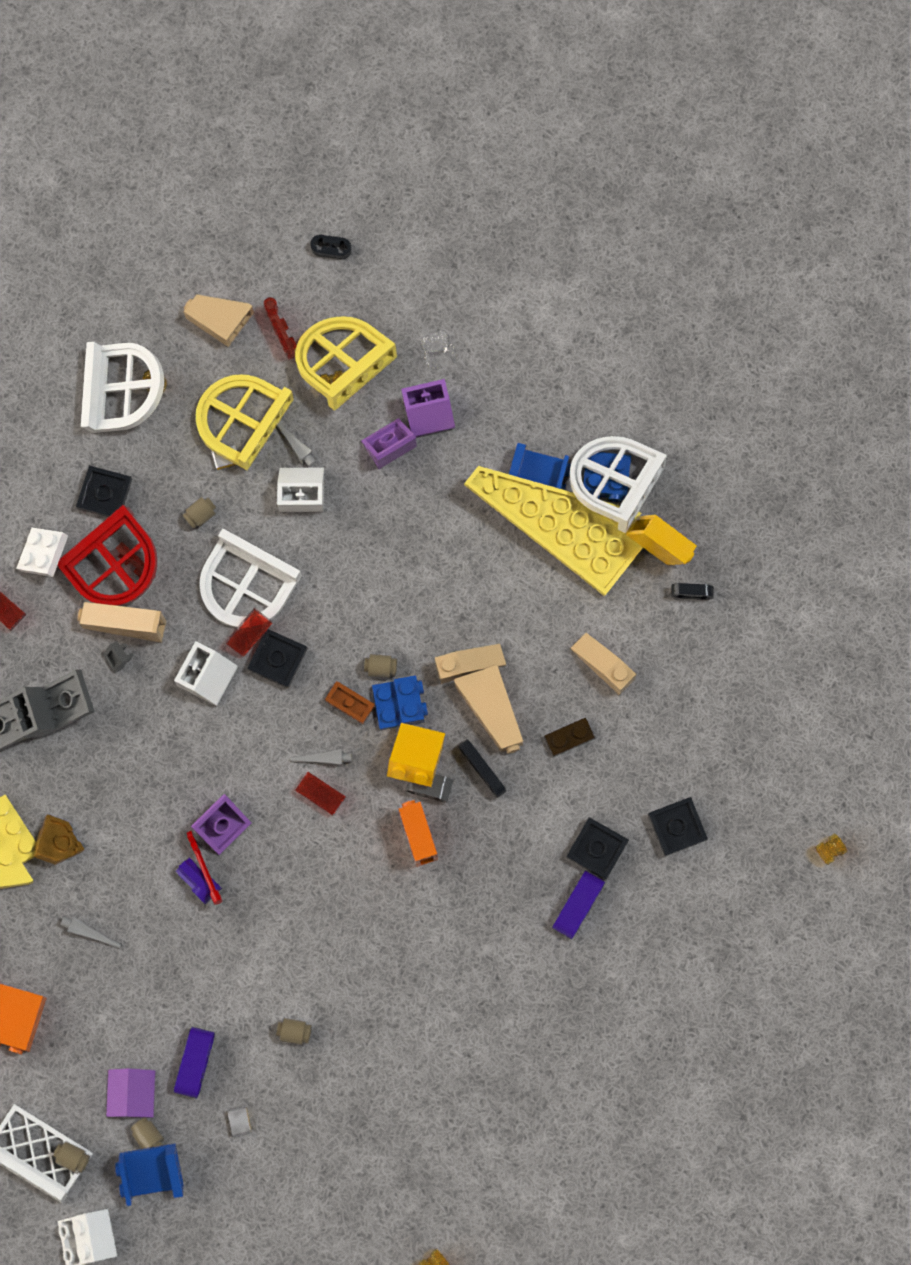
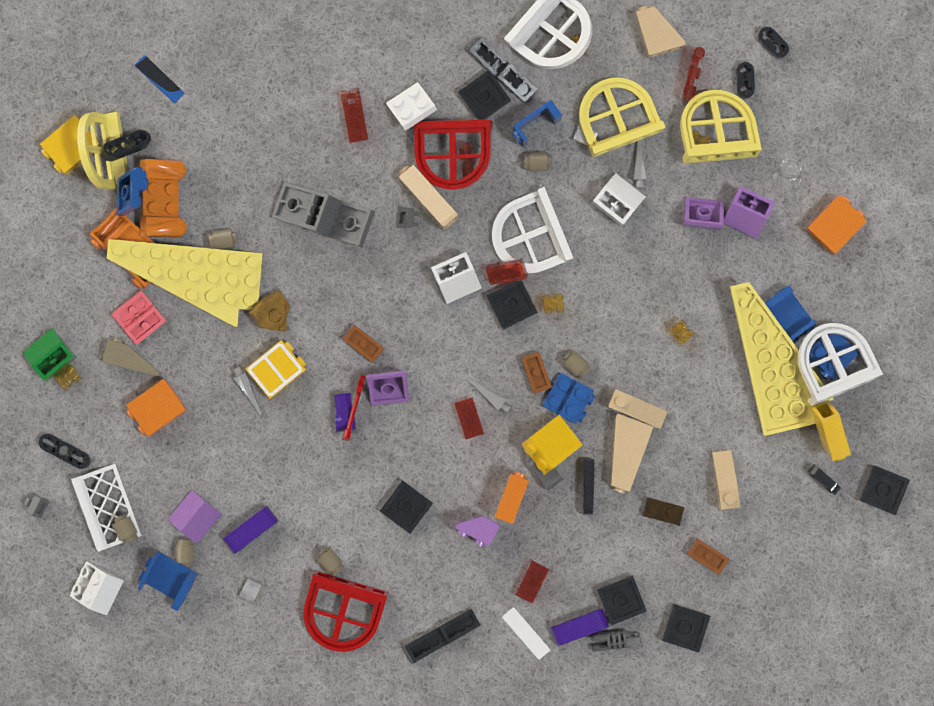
camera: 35 degrees right, 10 degrees up
(101, 890) = (276, 369): none -> yellow brick
(104, 457) = (501, 69): none -> slope
(166, 803) = (363, 343): none -> dark orange plate
(171, 456) = (549, 108): none -> blue panel
(315, 627) = (553, 303): none -> clear yellow wheel
(326, 922) = (406, 507): none -> black plate
(333, 1044) = (348, 589): none -> red window
(335, 295) = (740, 80): none -> black beam
(411, 885) = (479, 528): none -> medium lavender slope
(454, 561) = (681, 332): none -> clear yellow wheel
(455, 1018) = (441, 636): none -> black slope
(500, 898) = (532, 581): none -> clear red plate
(516, 359) = (836, 224): none -> orange brick
(533, 952) = (526, 633): none -> white sticker
(622, 890) = (615, 640): none -> dark grey hinge
(644, 744) = (708, 556): none -> dark orange plate
(754, 558) = (884, 490): none -> black plate

